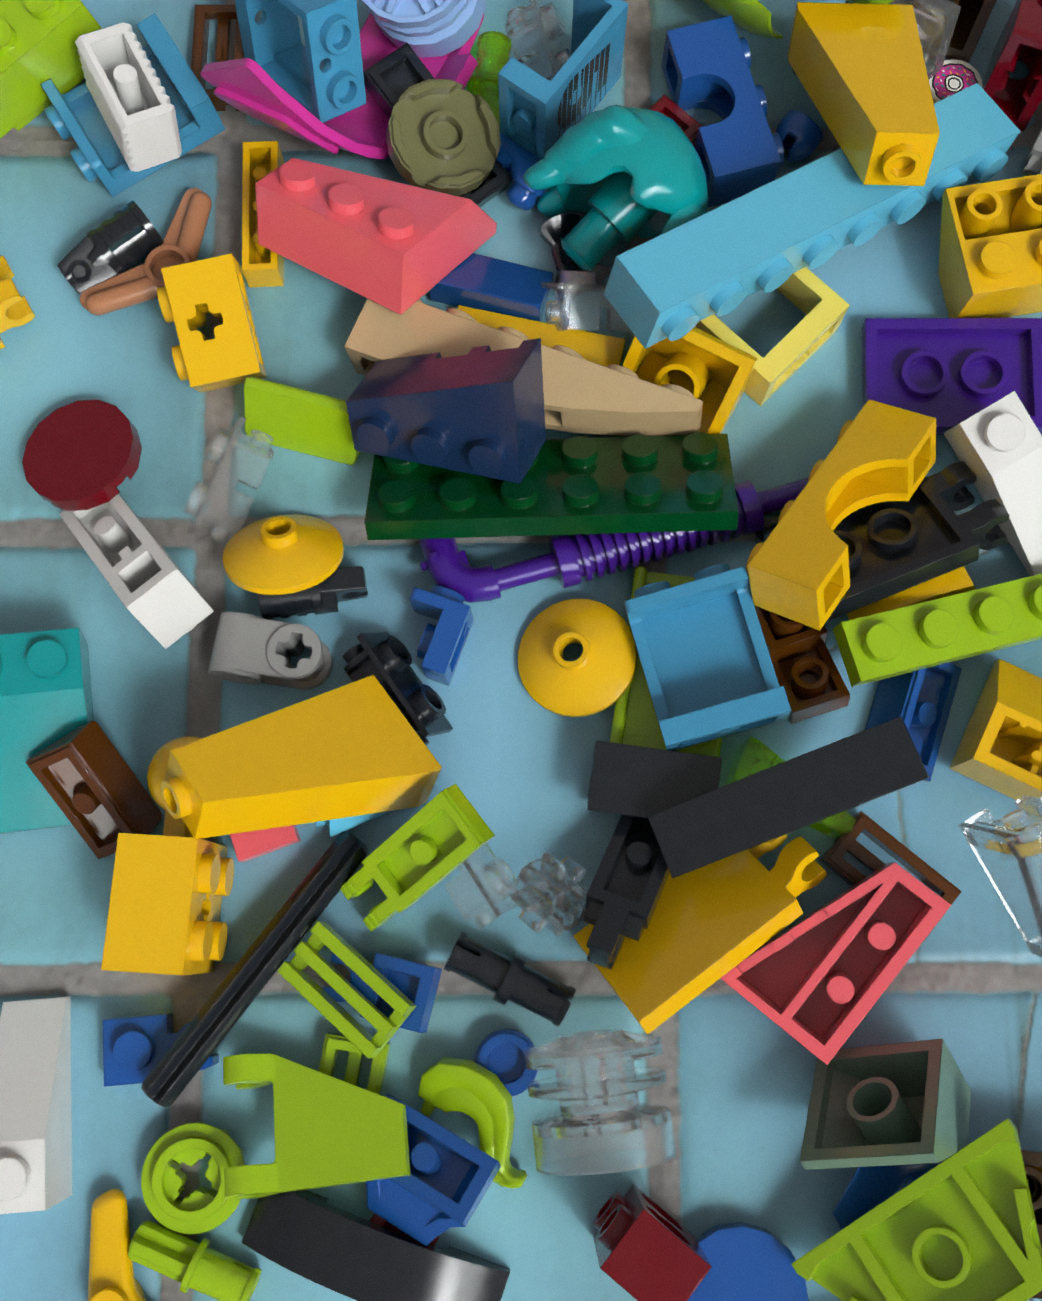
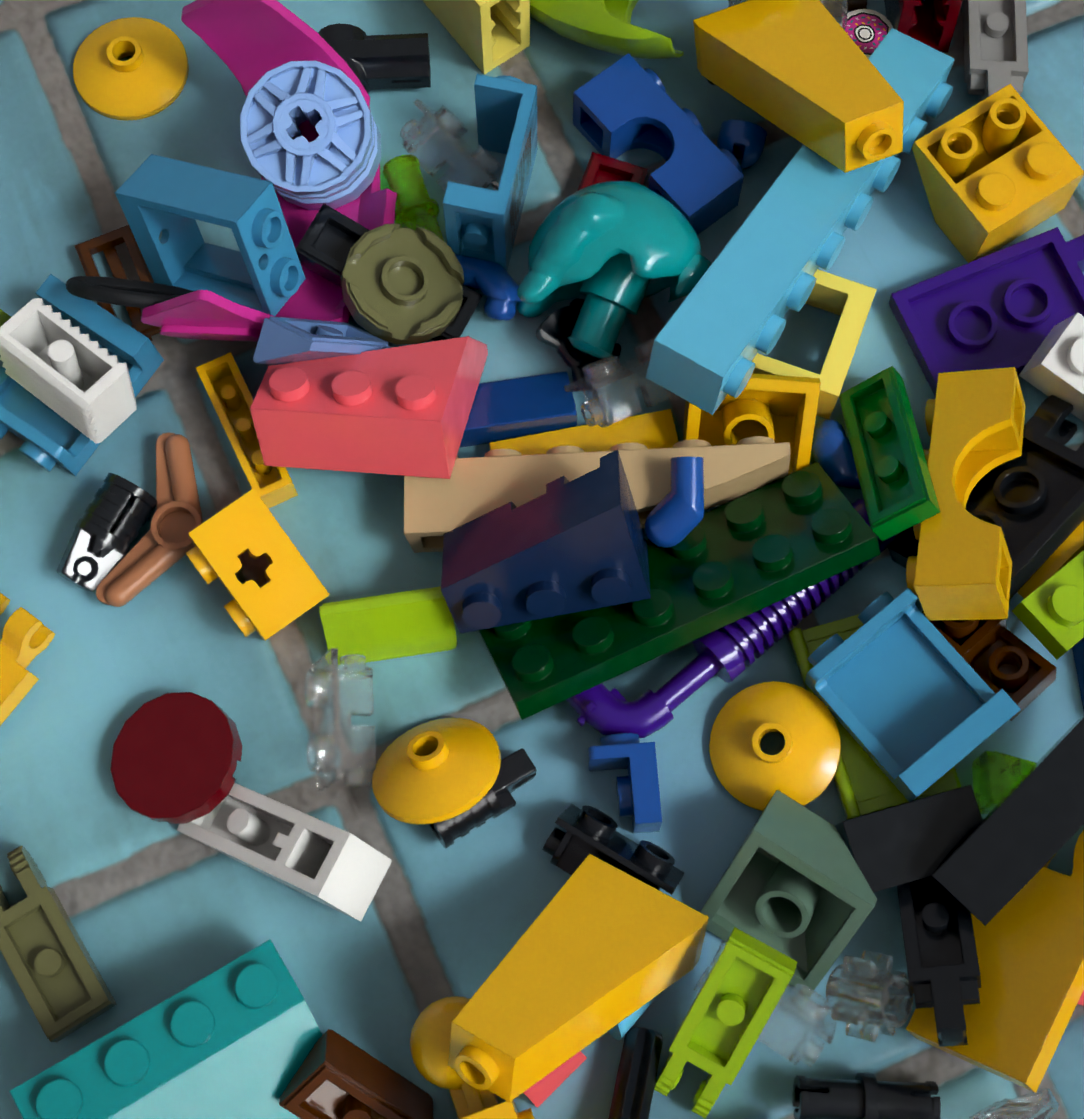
camera: 25 degrees left, 5 degrees down
(192, 42) = (122, 291): none -> black tyre
(260, 651) = (453, 882): light grey piece -> none
(324, 144) = (297, 340): none -> medium blue slope
(527, 778) = (793, 889): none -> sand green slope
(584, 416) = (682, 507): none -> blue arm
(749, 445) = (834, 453): none -> blue arm
(789, 450) = (888, 454): none -> green tile

